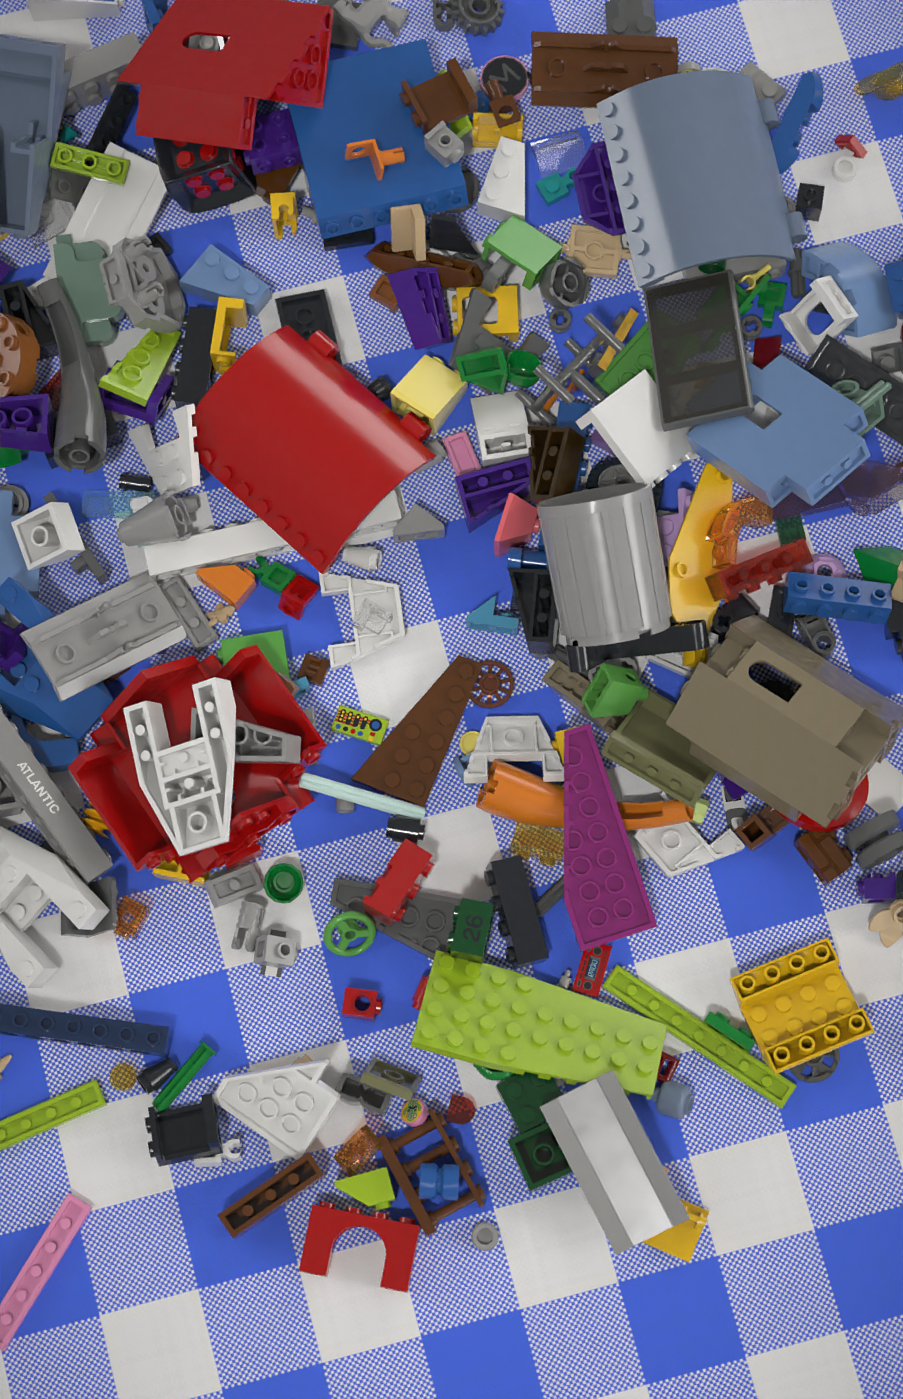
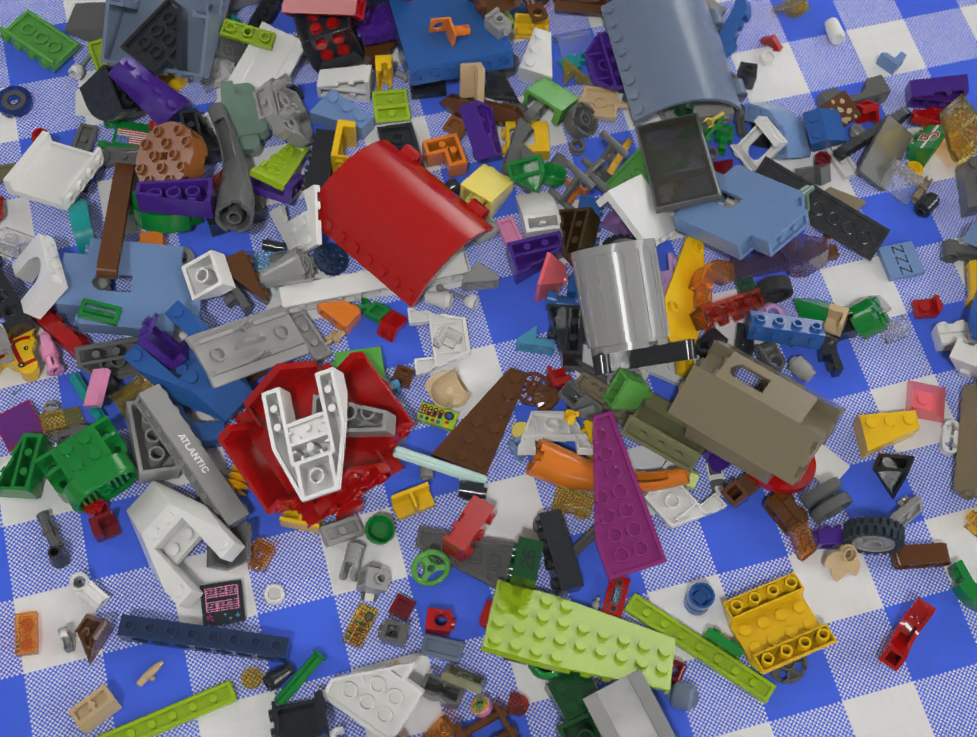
camera: 10 degrees left, 10 degrees down
(83, 980) = (223, 603): none -> black tile
(94, 525) = (243, 274): none -> reddish brown slope
(149, 969) = (274, 594): none -> white tile
(214, 501) = (330, 258): none -> dark blue wheel
(231, 231) = (350, 82): none -> white wedge
(260, 1008) = (360, 625): none -> clear yellow tile
(295, 263) = (391, 106): none -> lime slope
(313, 984) = (402, 607): none -> dark red tile
(313, 1015) = (401, 629): none -> dark grey brick
(326, 844) = (412, 501): none -> yellow panel
(365, 1038) = (442, 648): none -> sand blue tile
(373, 689) = (447, 389): none -> tan helmet
(374, 334) = (445, 150): none -> orange brick
(405, 558) = (470, 301): none -> white hinge
(524, 670) = (557, 377): none -> red panel
(544, 703) = (583, 404): none -> torso
(552, 201) = (569, 69): none -> clear yellow slope
(700, 973) = (699, 598): none -> blue wheel
(828, 536) = (775, 288): none -> black tyre
(841, 893) = (802, 539): none -> clear orange plate
(859, 651) = (801, 368): none -> light grey brick

